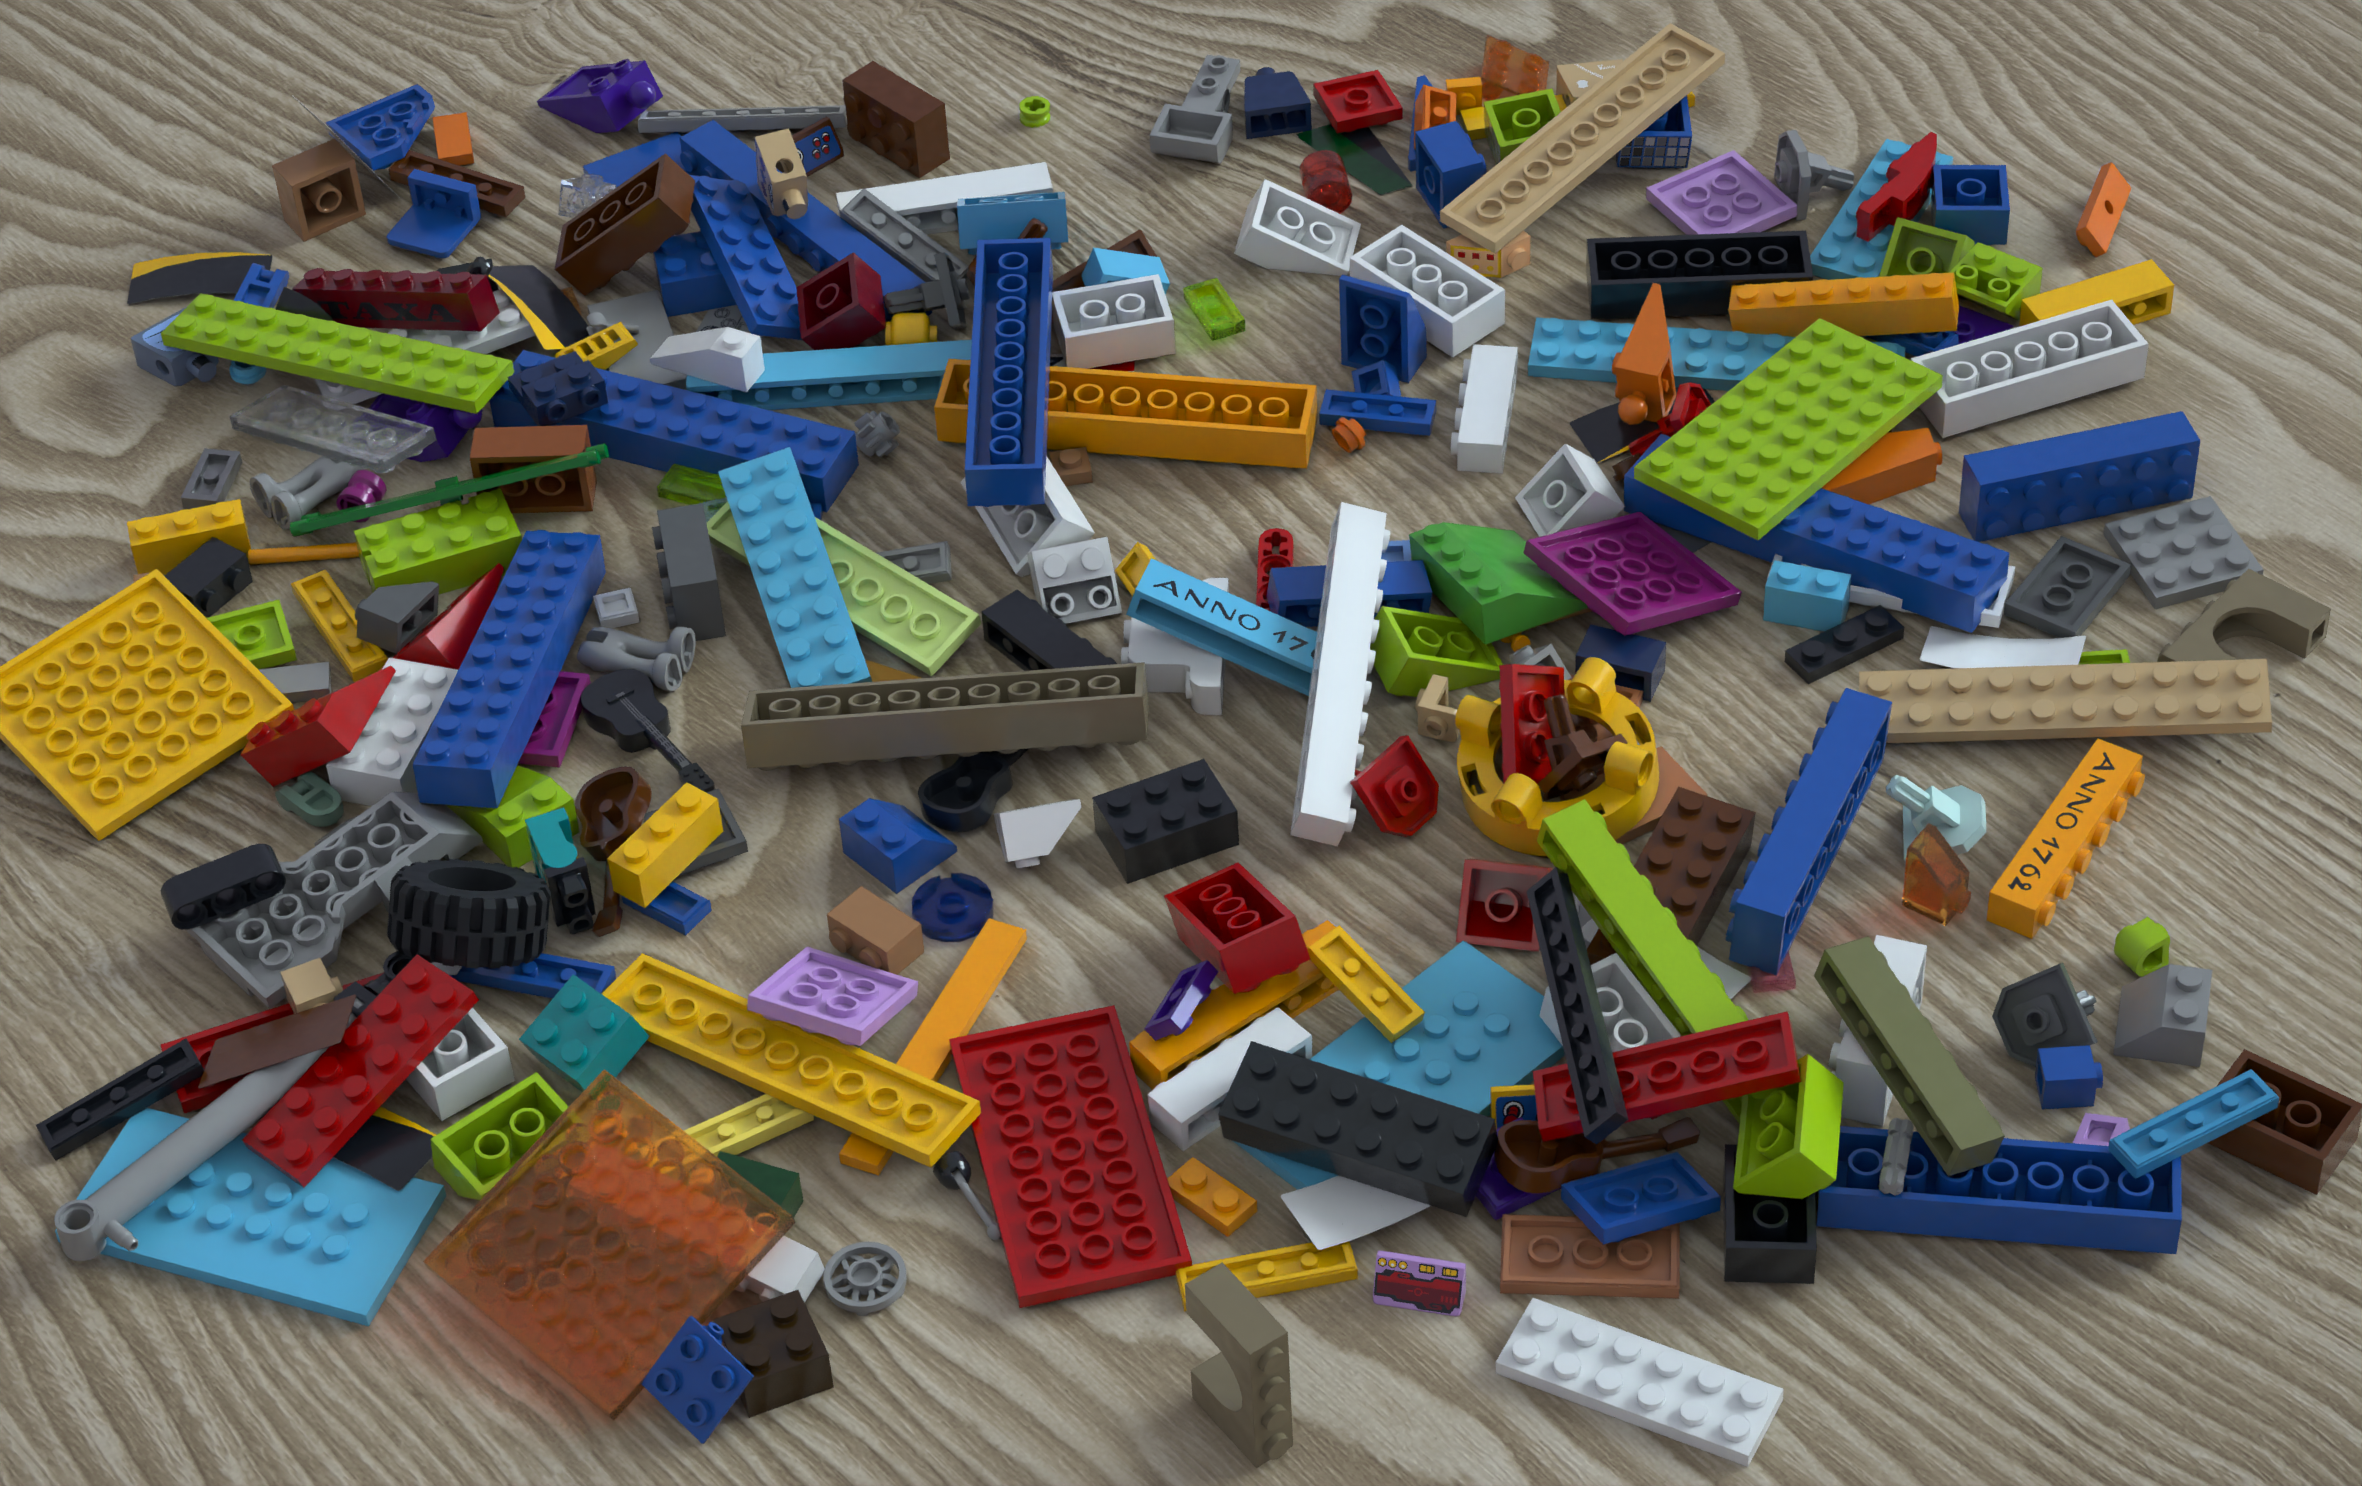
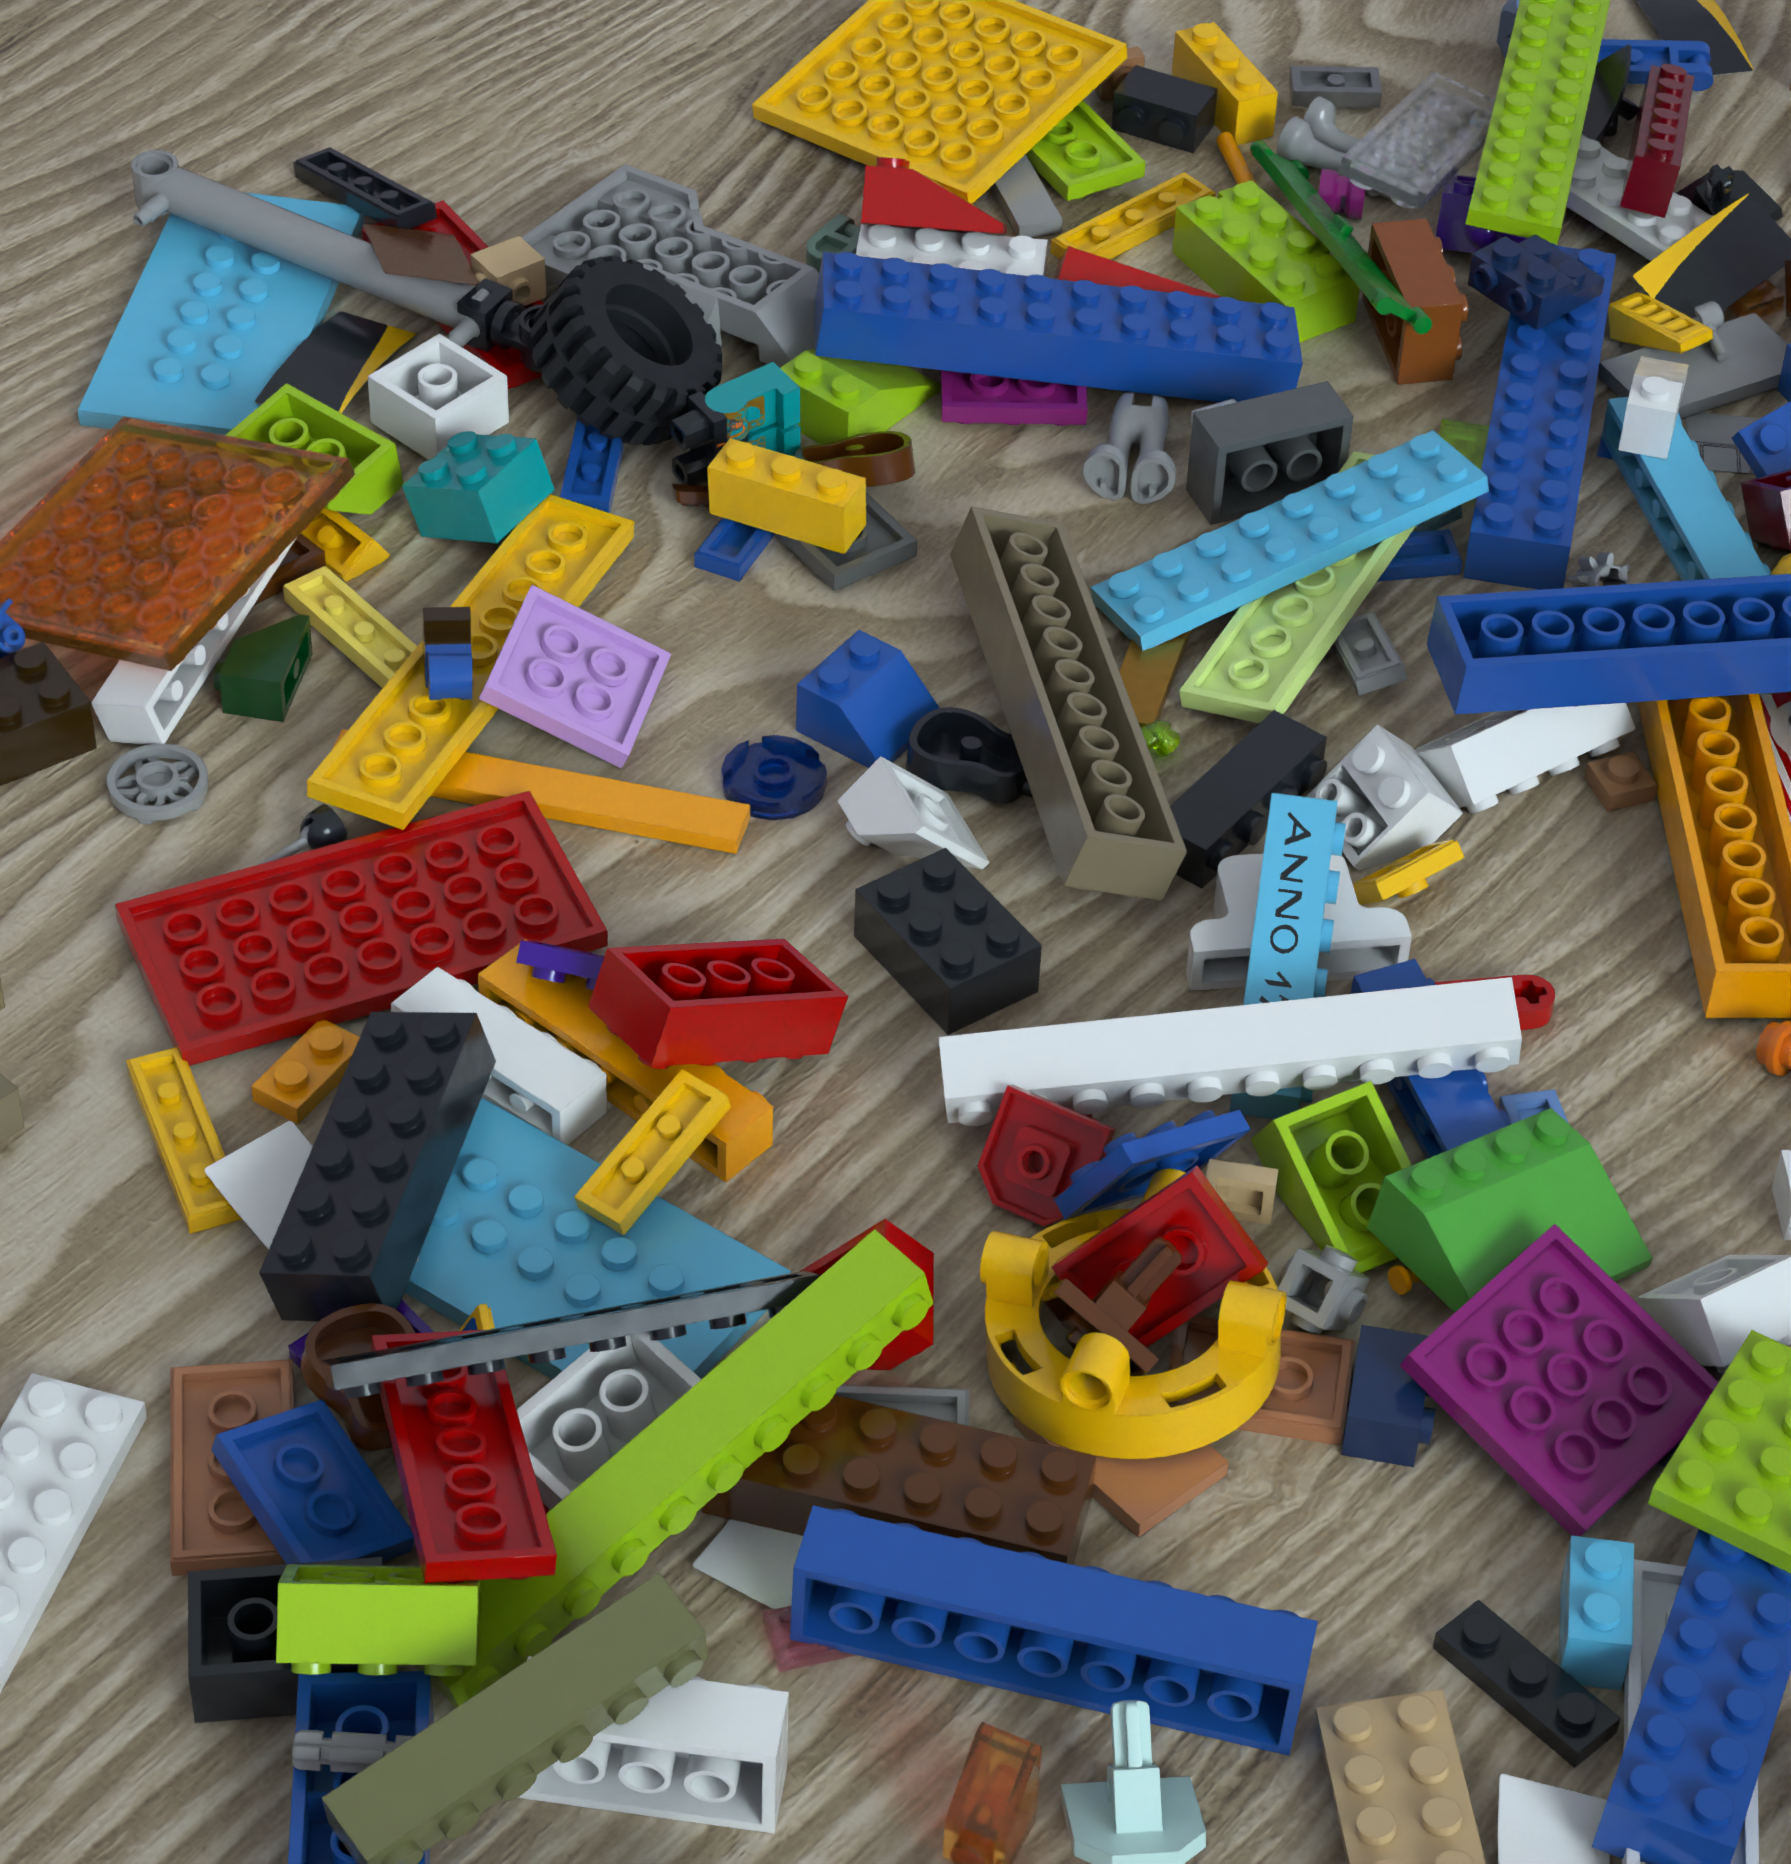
camera: 75 degrees right, 0 degrees up
(223, 886) = (644, 177): black beam -> none
(360, 1071) = (392, 321): red plate -> none
(396, 614) = (1143, 241): dark grey slope -> none
(627, 711) = (1029, 467): black piece -> none
(814, 1057) = (447, 652): none -> leg
(875, 932) = (701, 707): medium nougat brick -> none
(1419, 1283) = (164, 1286): slope -> none
(1436, 721) = (1134, 1160): none -> blue plate

